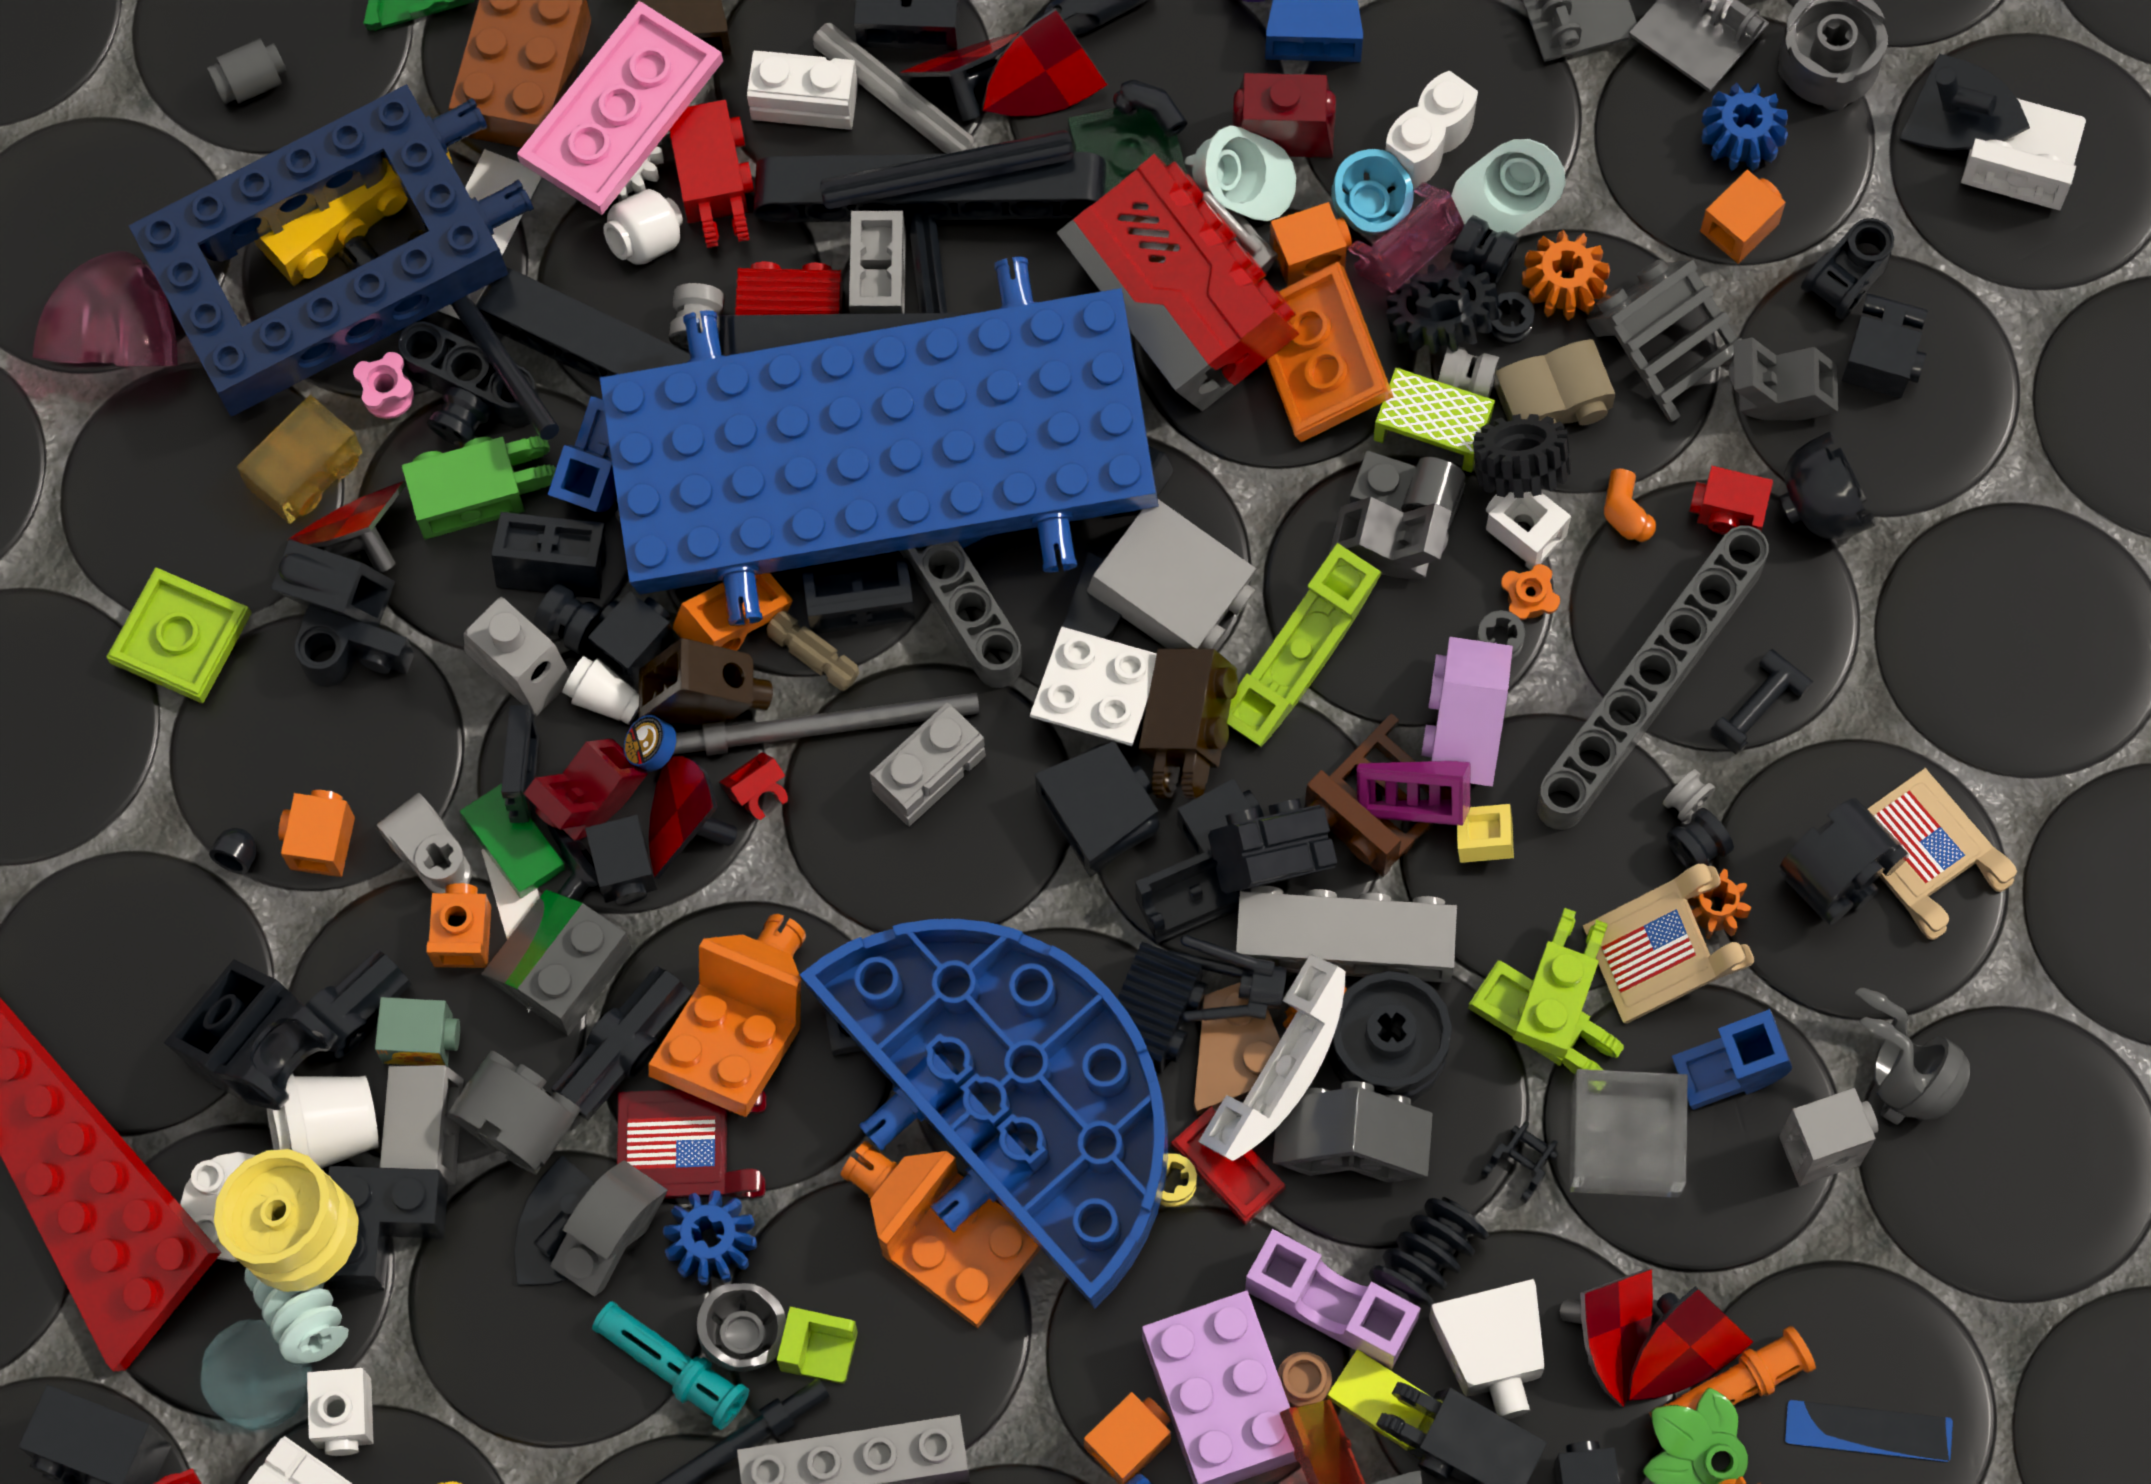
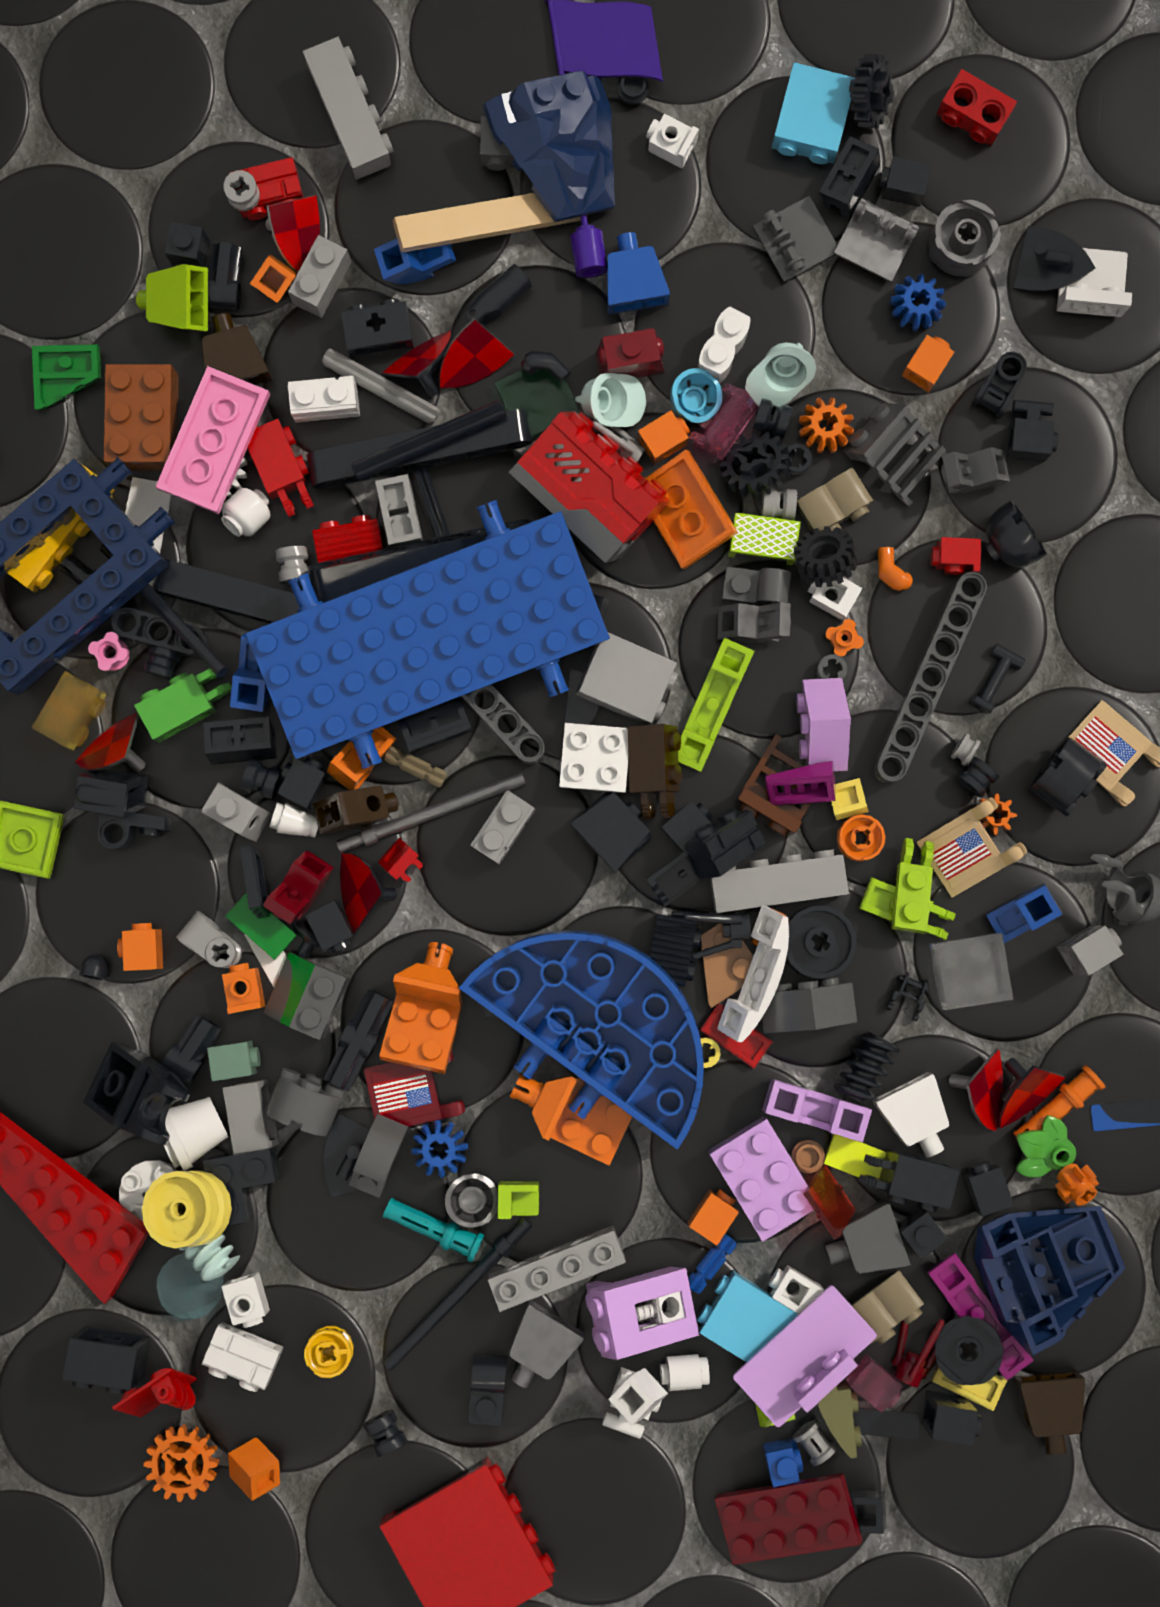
camera: 15 degrees left, 15 degrees up
(650, 743) = (330, 850): tile -> none
(1489, 918) = (847, 836): none -> orange wheel

